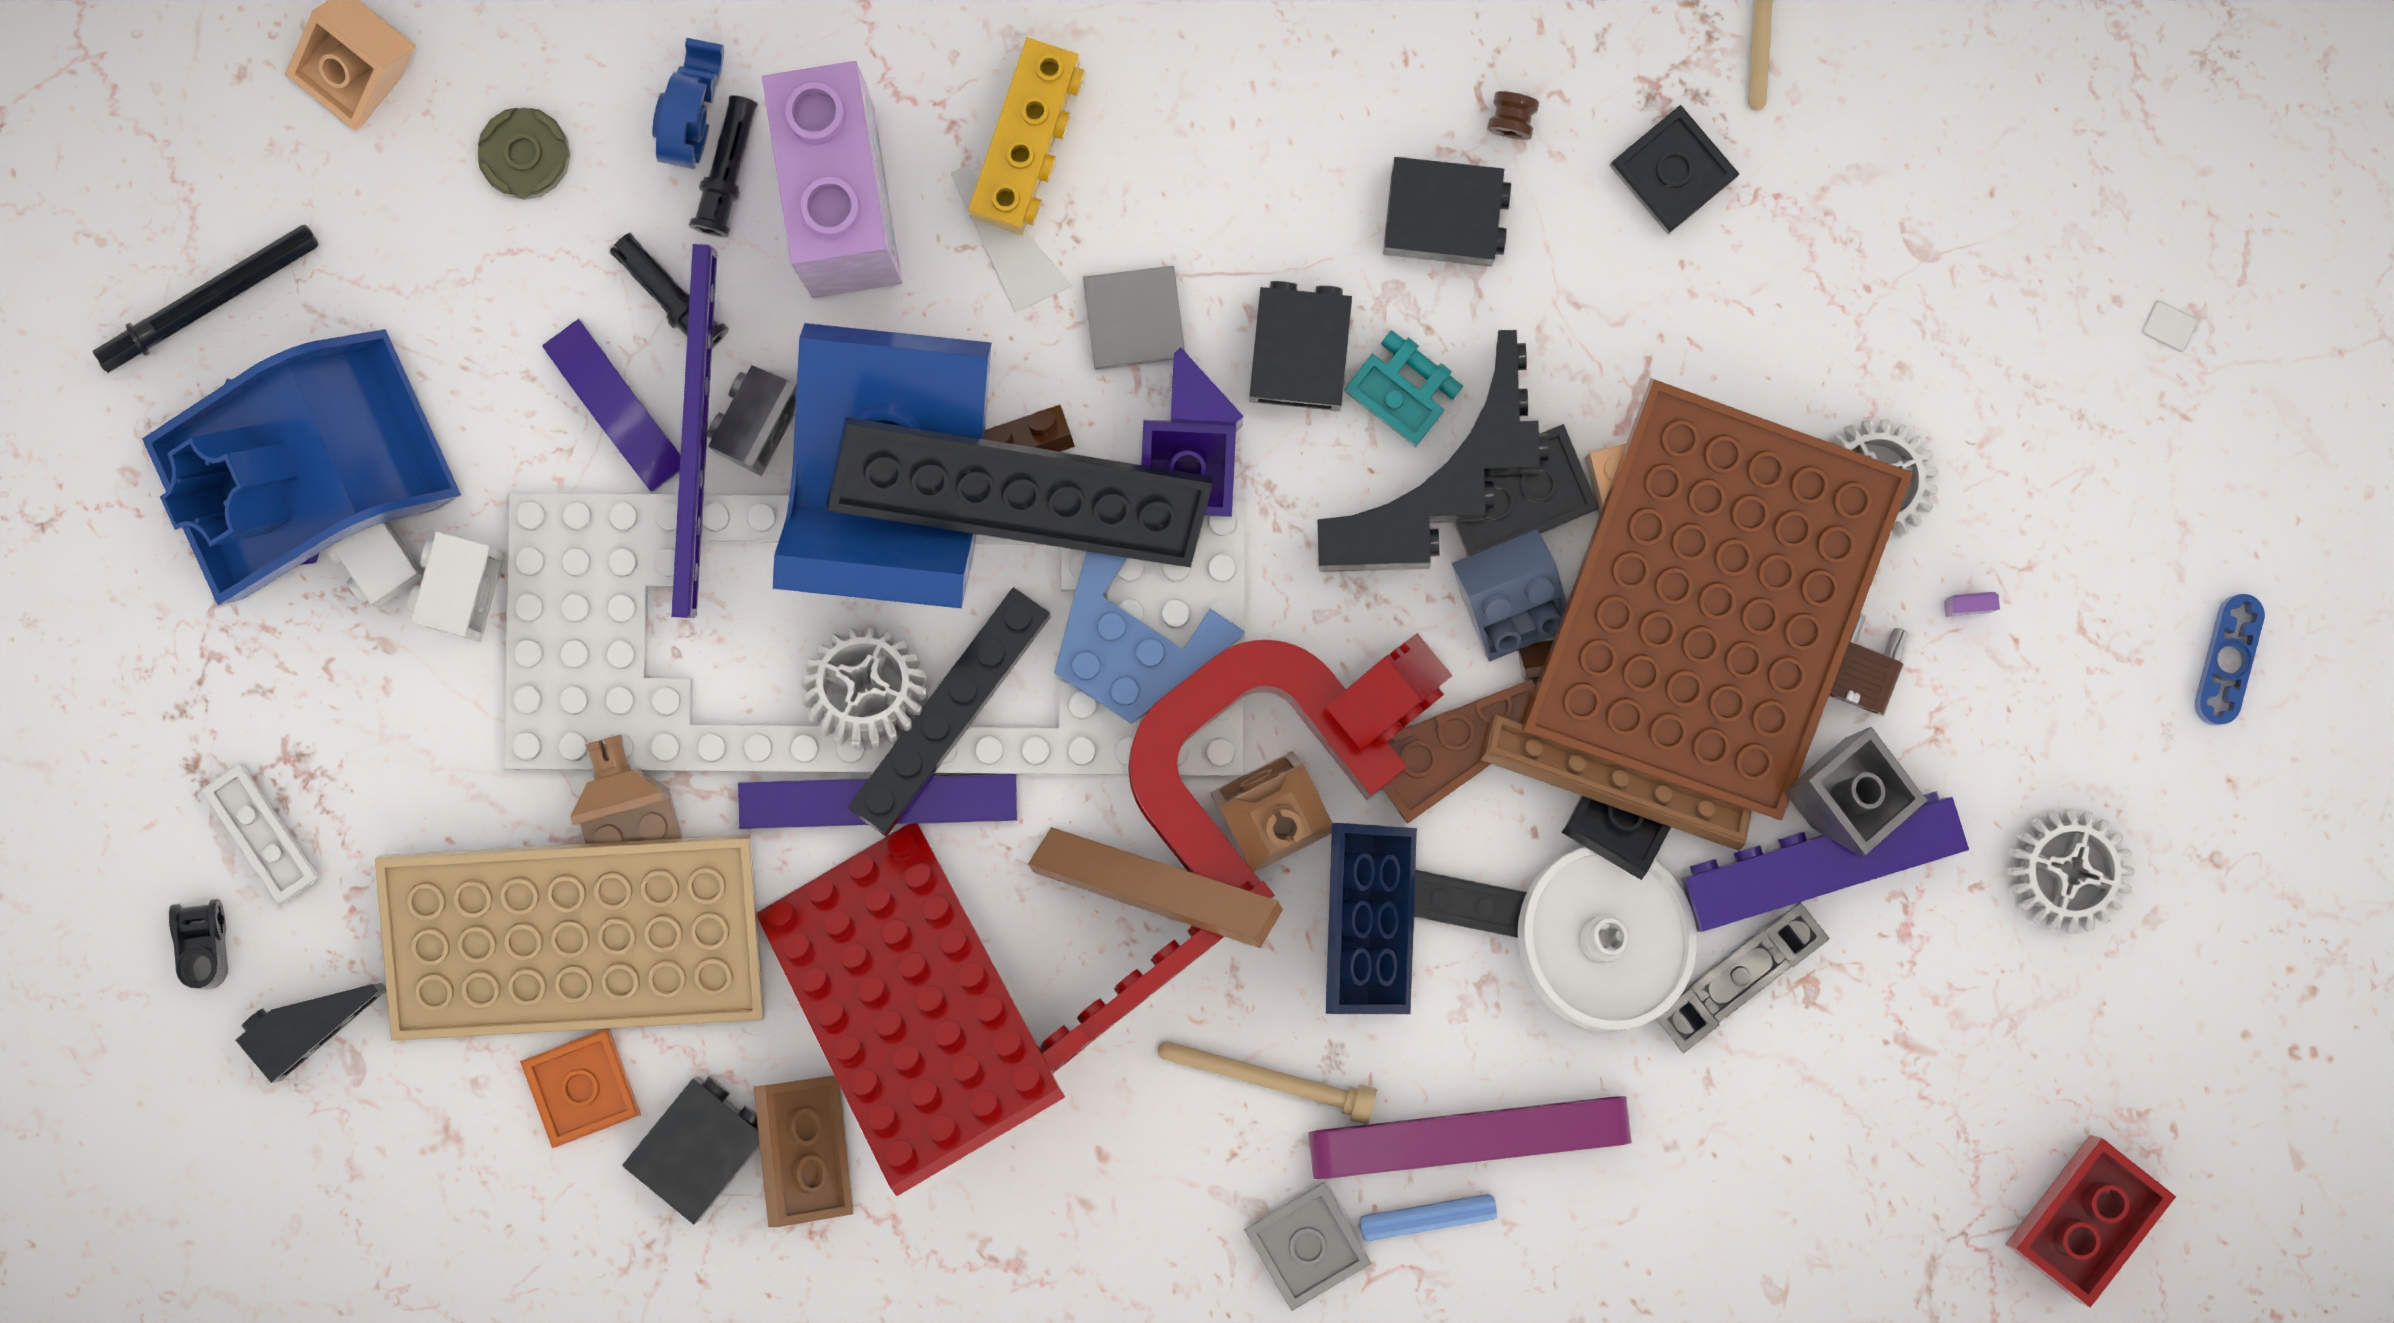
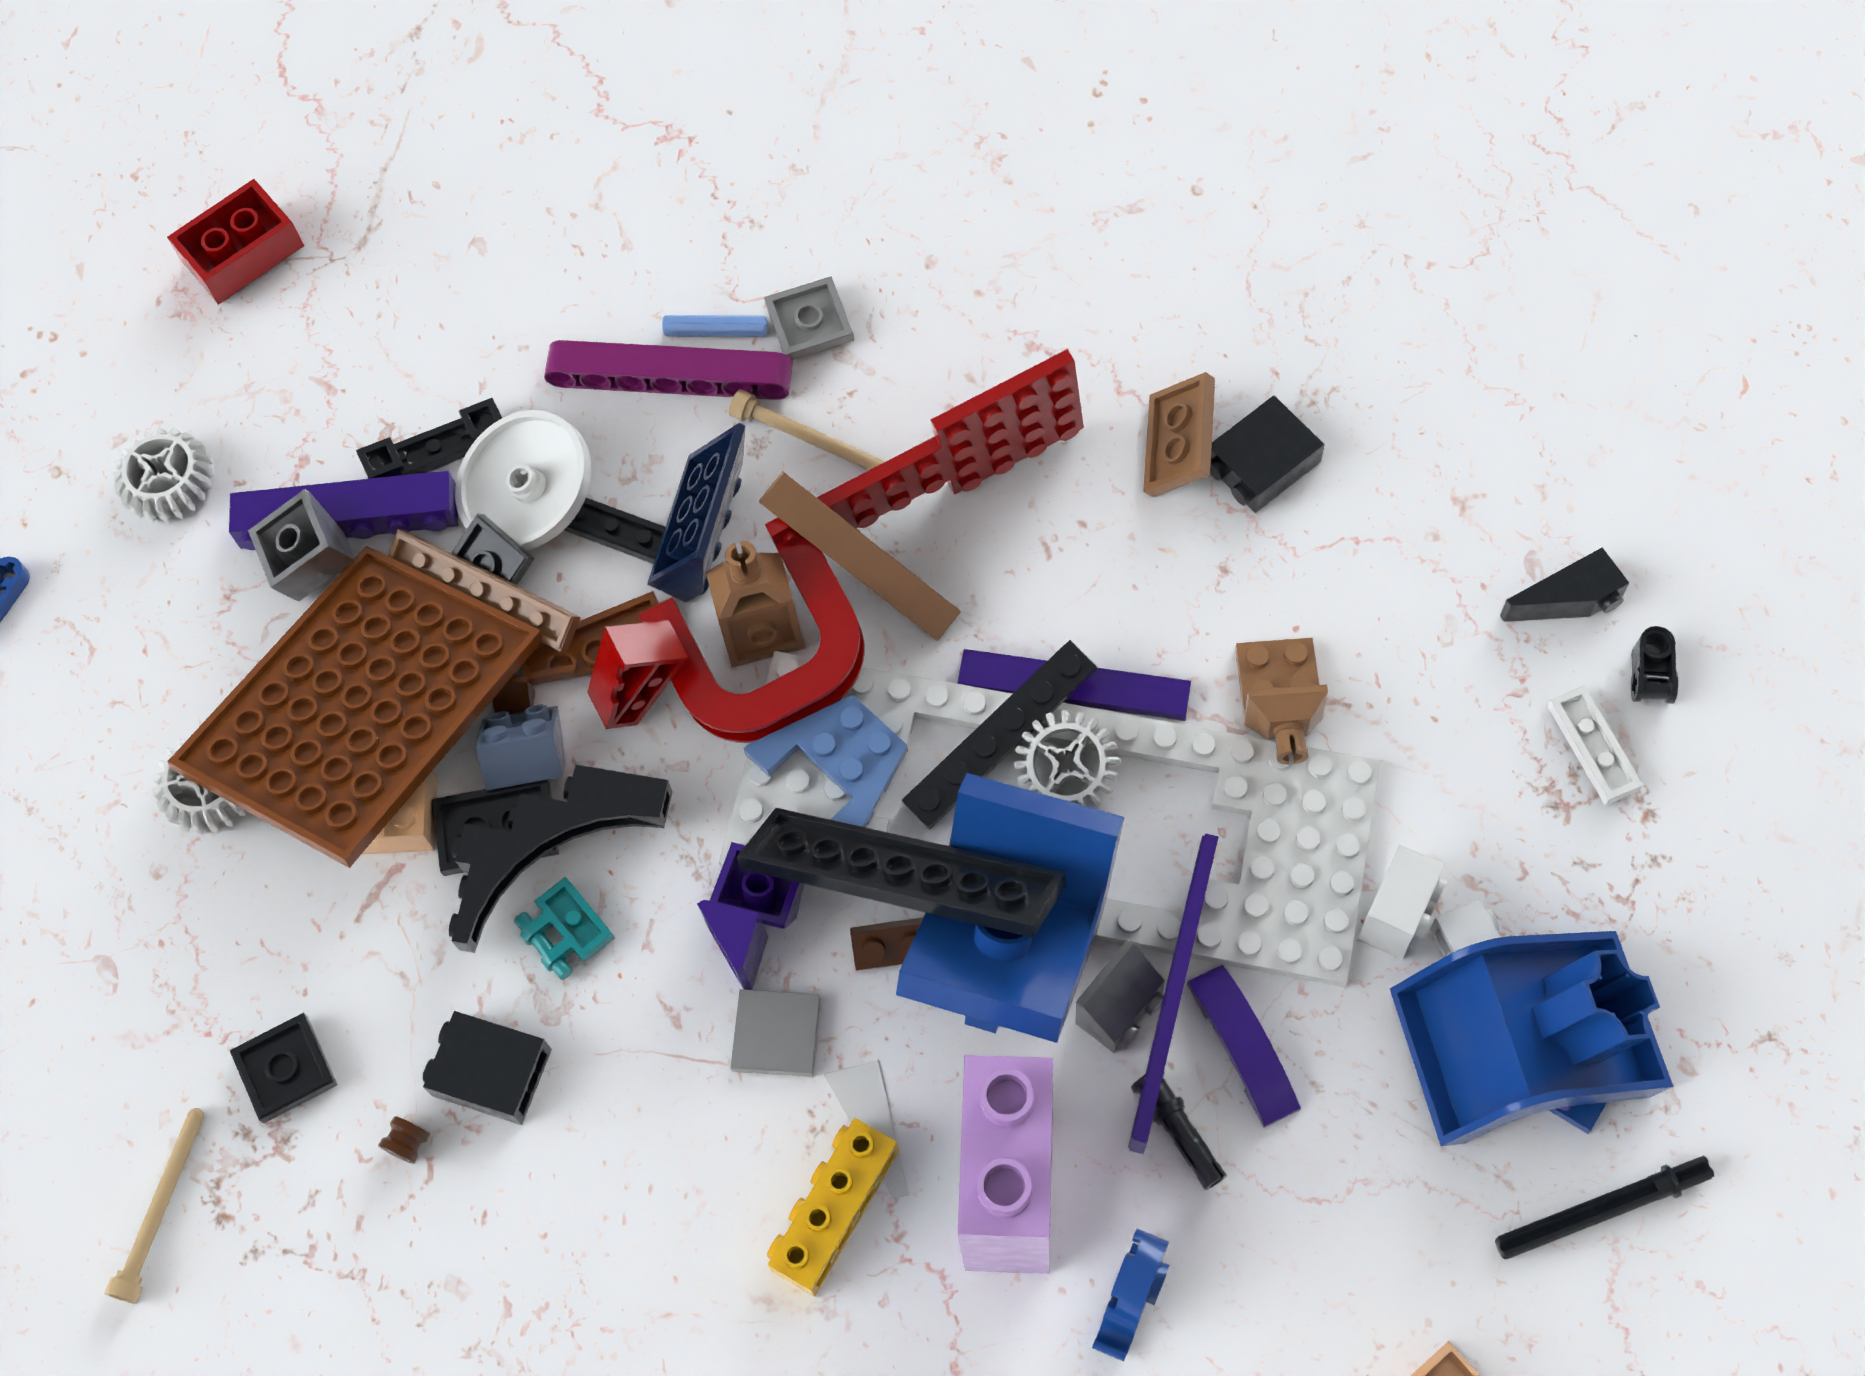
camera: 160 degrees left, 20 degrees down
(523, 153) = (1293, 1287): olive tile -> none
(570, 937) = (1344, 617): tan plate -> none
(580, 1087) = (1350, 517): orange tile -> none
(720, 187) = (1117, 1215): black pin -> none
(908, 1008) = (1073, 491): red plate -> none
(1300, 346) = (640, 976): black brick -> none
(1867, 676) = (257, 639): reddish brown piece -> none
(1971, 604) = (165, 675): medium lavender tile -> none

